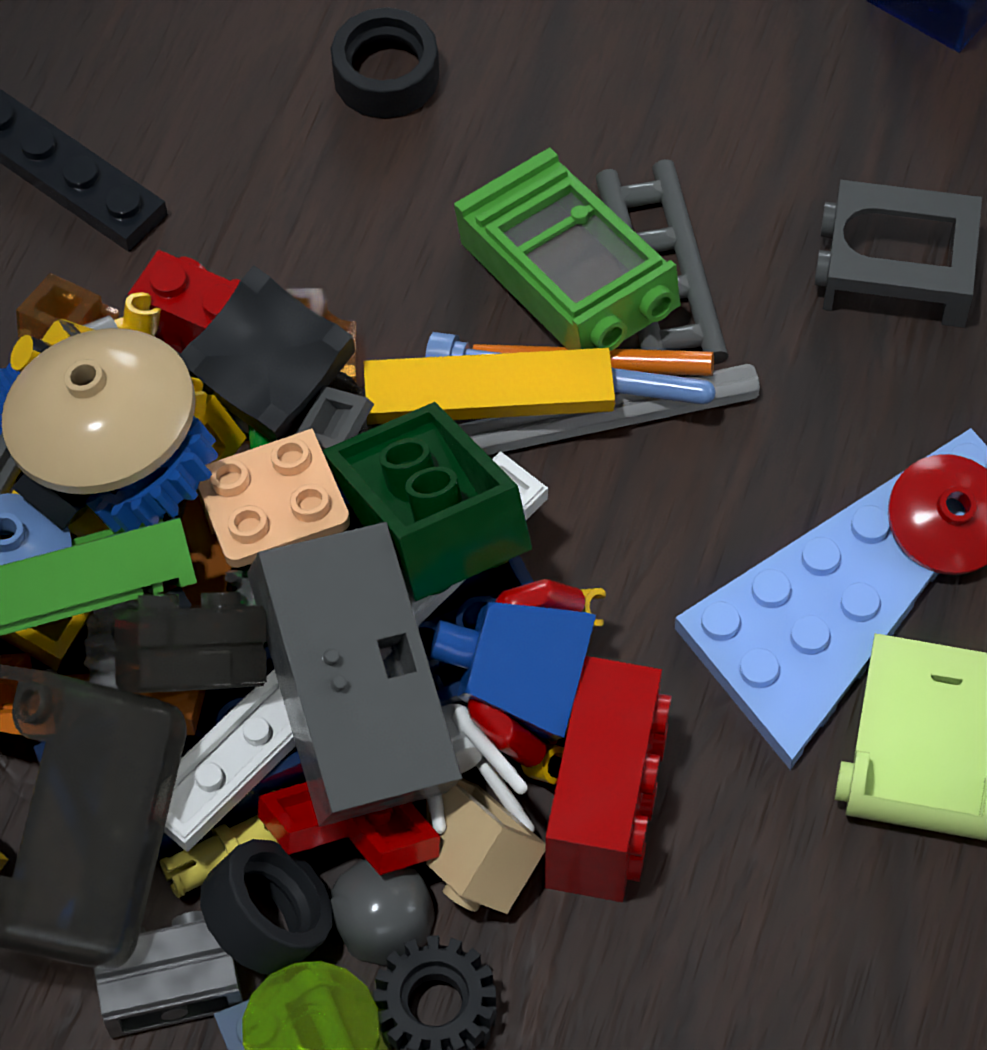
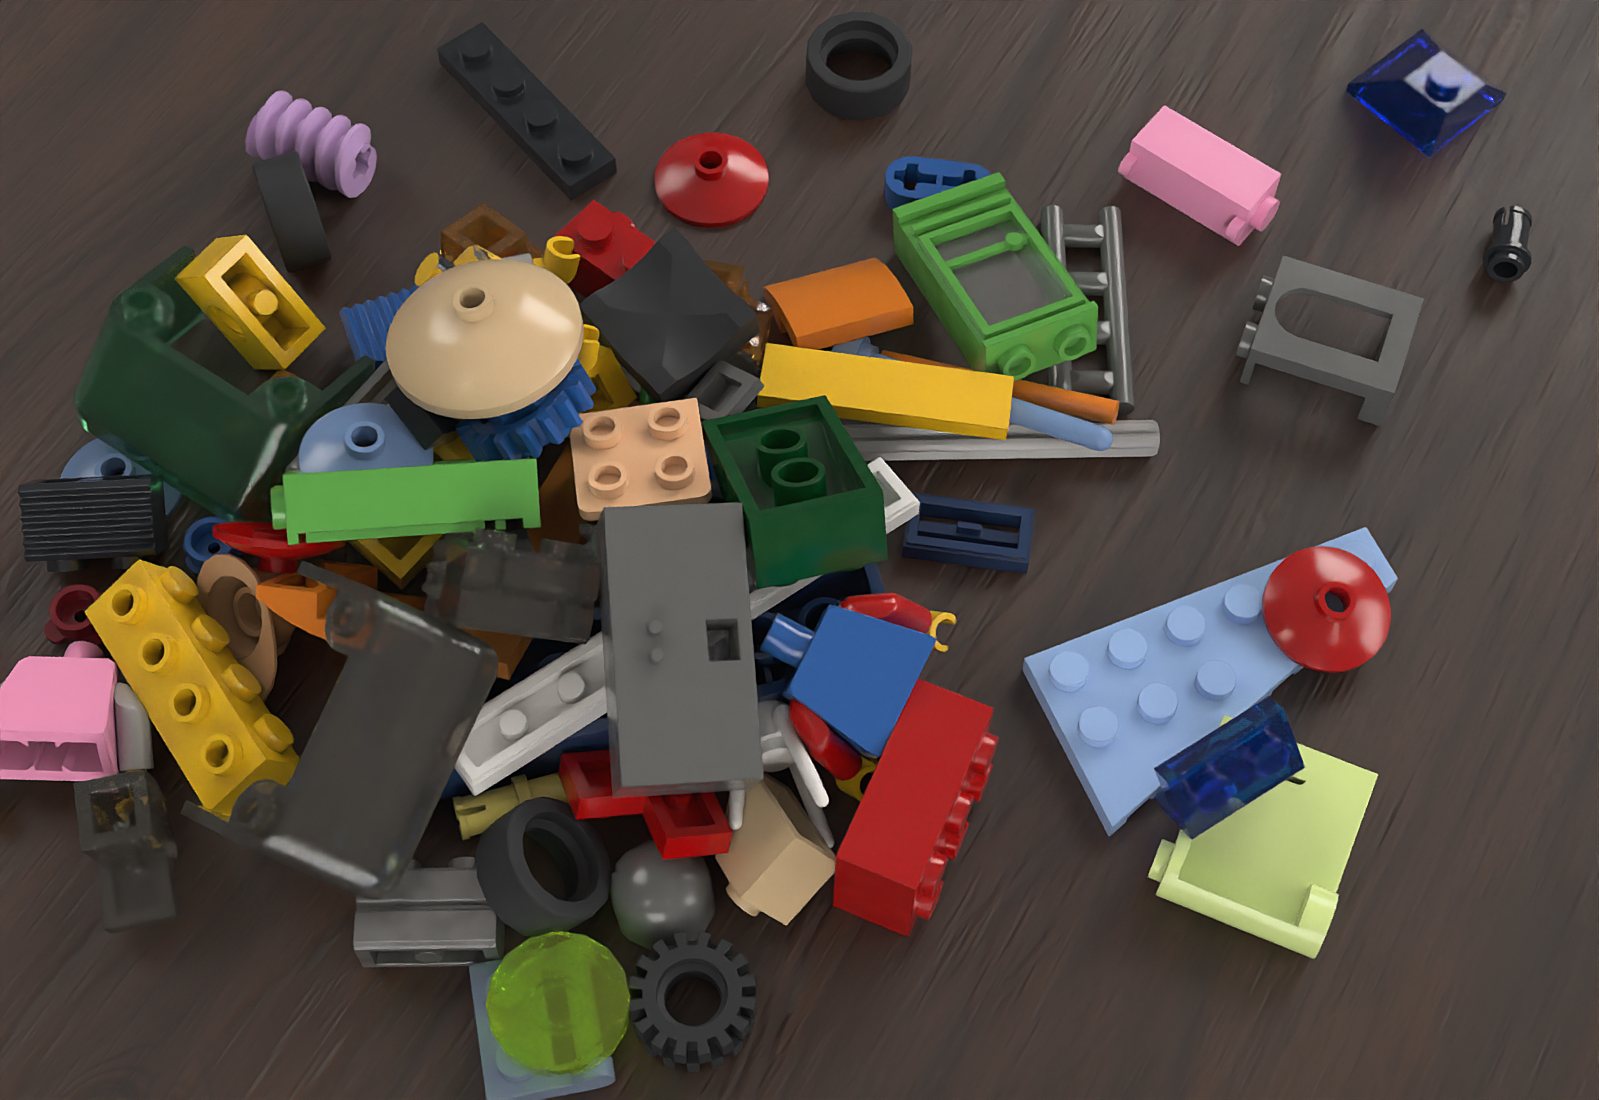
camera: 10 degrees right, 0 degrees up
(268, 221) = (711, 195): none -> red dish
(421, 307) = (839, 304): none -> orange slope
(483, 164) = (929, 174): none -> blue beam
(598, 516) = (969, 542): none -> dark blue tile
(746, 113) = (1202, 176): none -> bright pink brick
(890, 682) = (1228, 768): none -> clear blue bracket

